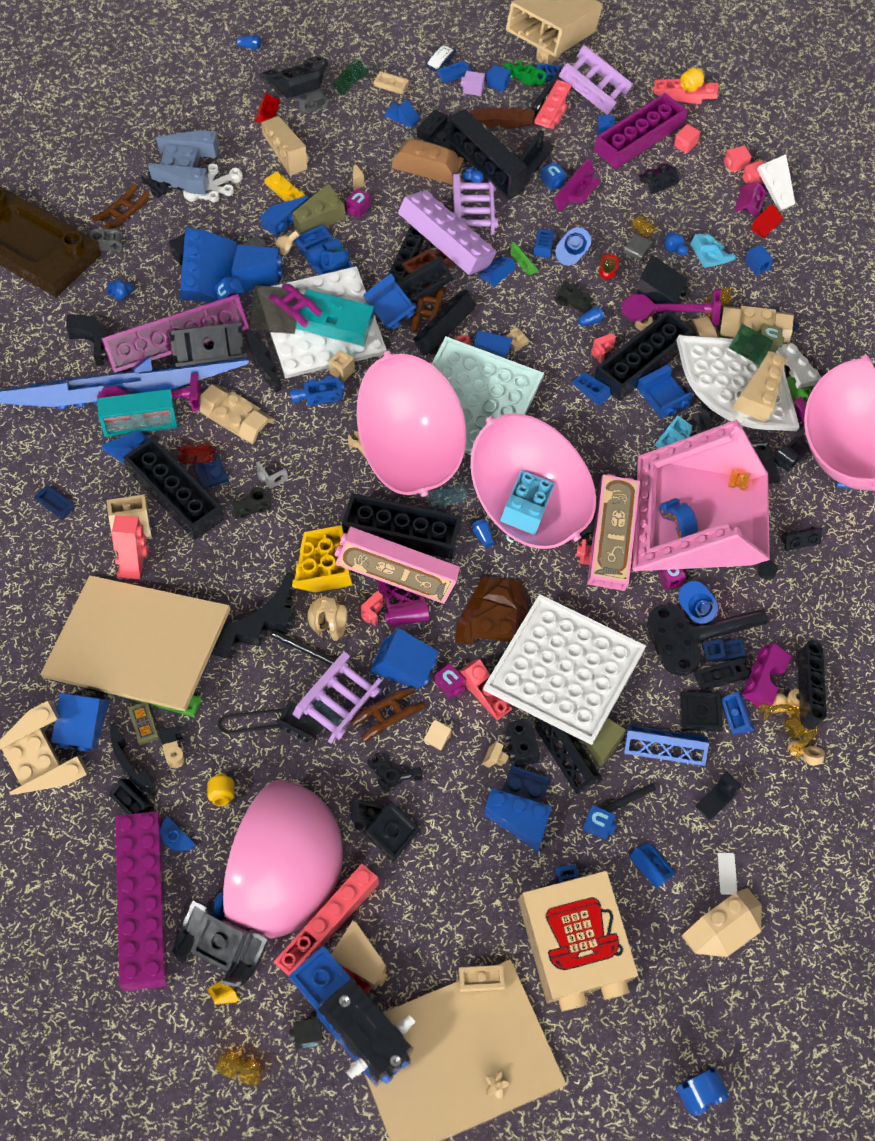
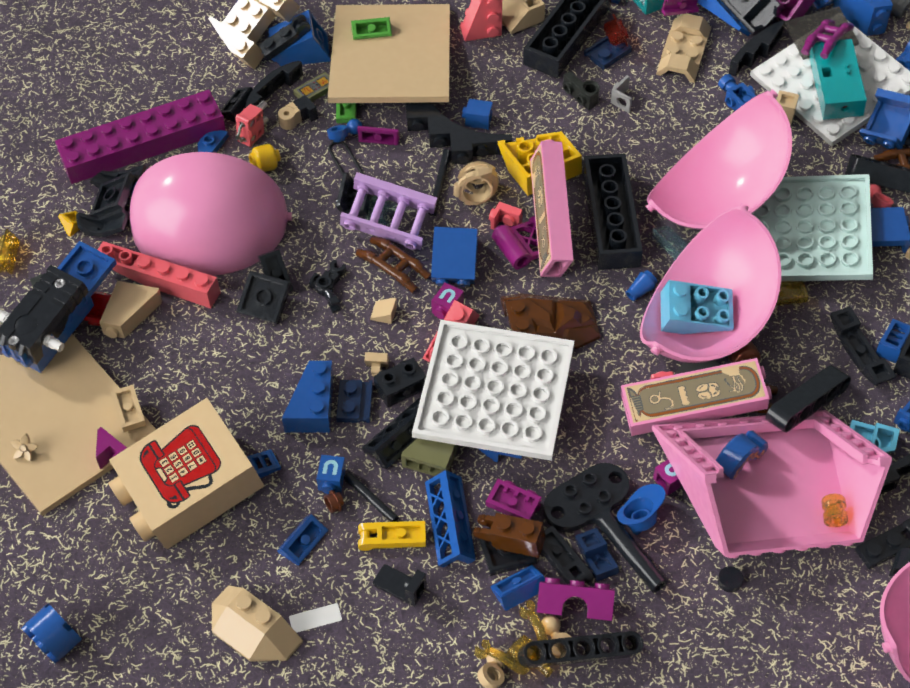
camera: 75 degrees right, 5 degrees down
(82, 727) = (285, 37): none -> black hinge
(99, 649) = (371, 28): none -> bright green slope
(174, 789) = (251, 124): none -> coral piece
(213, 716) = (339, 132): none -> blue plate
(230, 683) = (378, 135): none -> magenta slope
(243, 593) = (478, 114): none -> blue brick
(521, 1005) = (106, 447): none -> magenta slope
(595, 412) = (858, 347): none -> black slope
(625, 828) = (333, 501): none -> copper plate
(637, 459) = (808, 398): none -> black beam
(667, 691) = (513, 500): none -> magenta bracket
(670, 791) = (392, 535): none -> yellow plate
(702, 698) = (512, 534): none -> reddish brown hinge
(804, 538) = (790, 605): black hinge -> none

